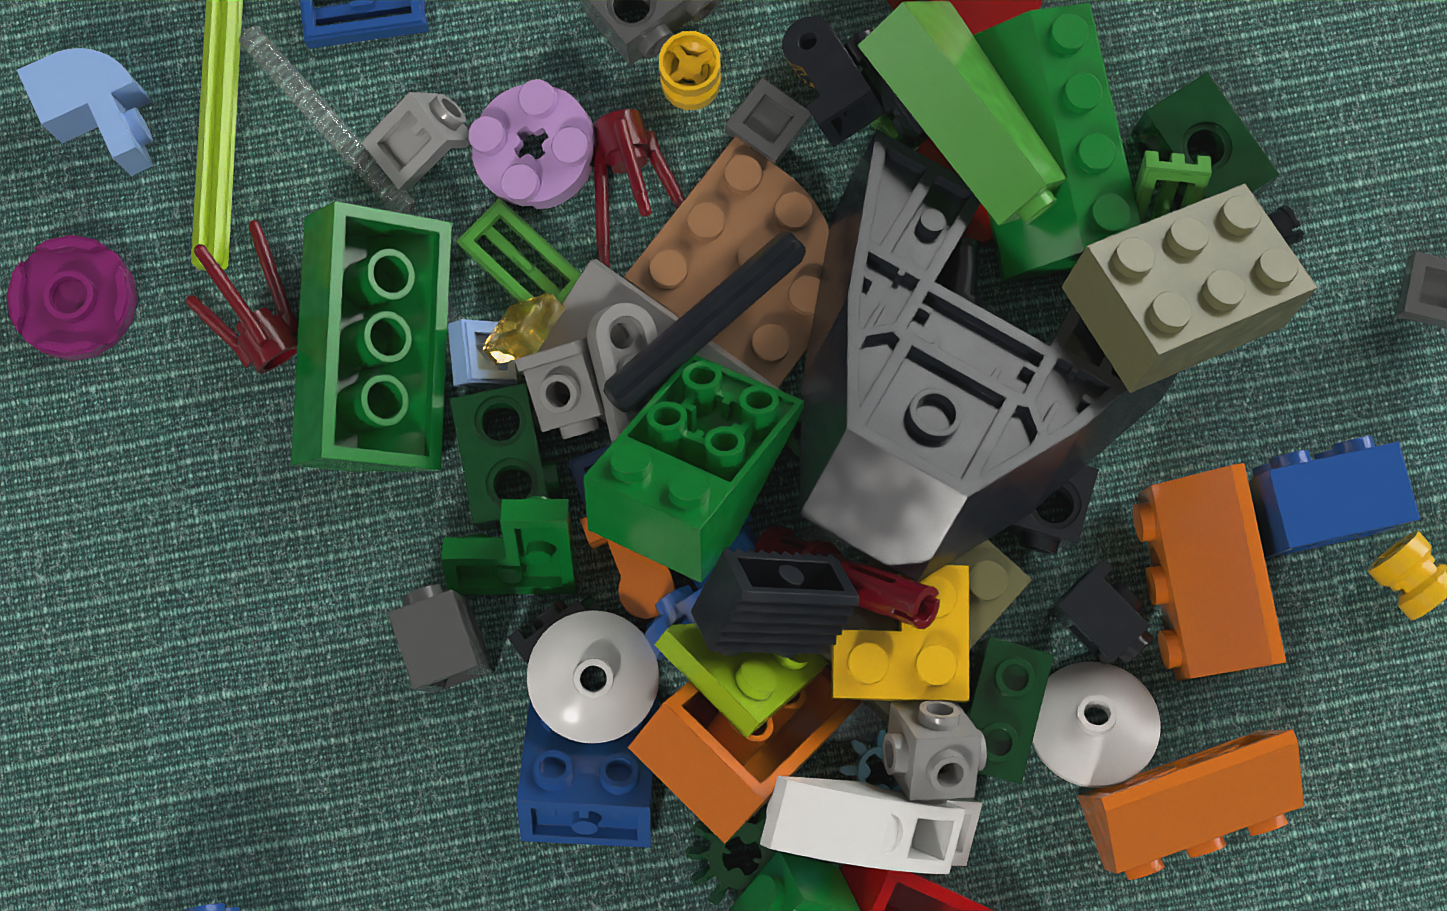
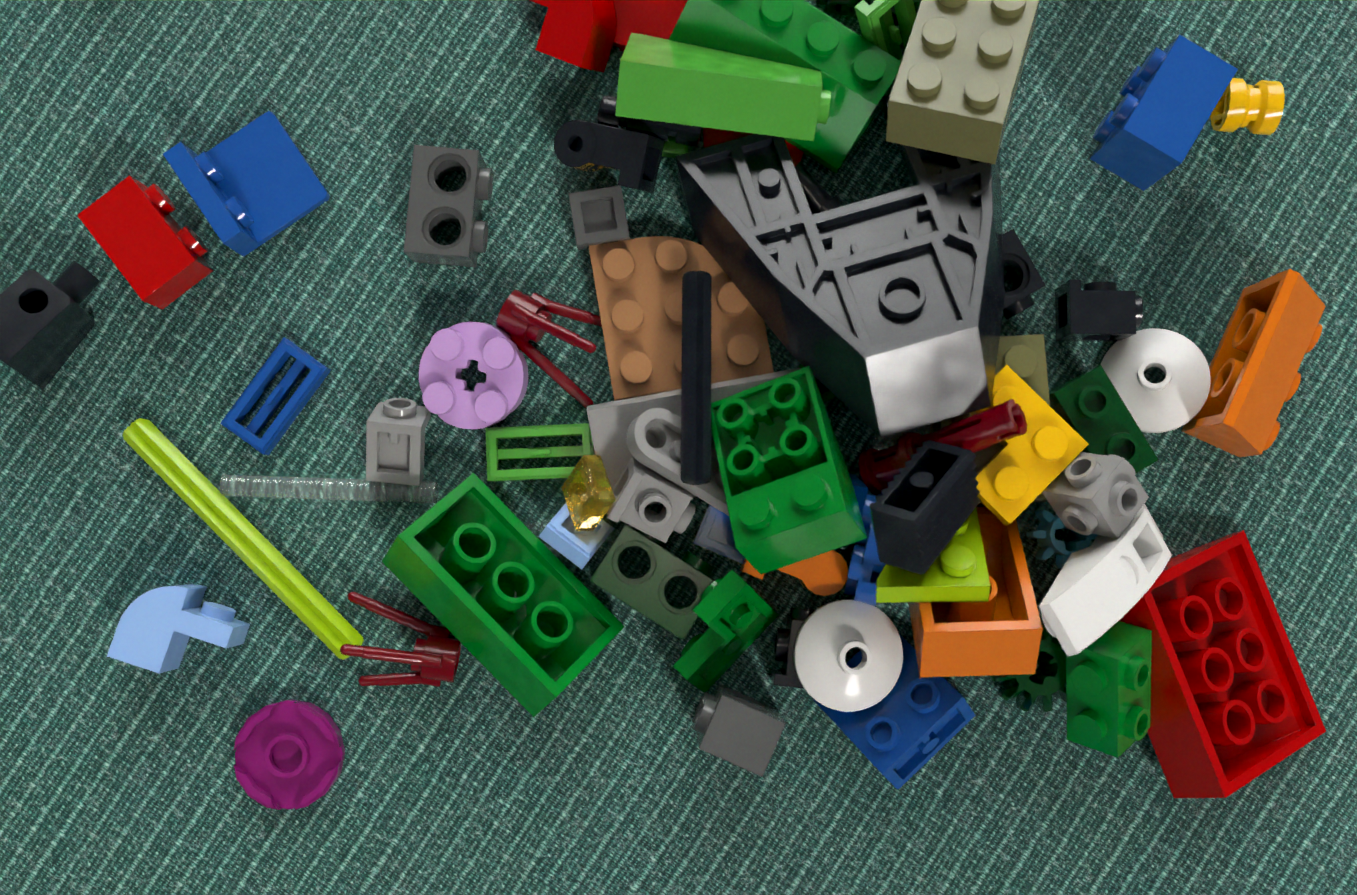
camera: 50 degrees left, 5 degrees up
(685, 58) = (519, 222): yellow wheel -> none
(1208, 574) = (1139, 225): orange slope -> none

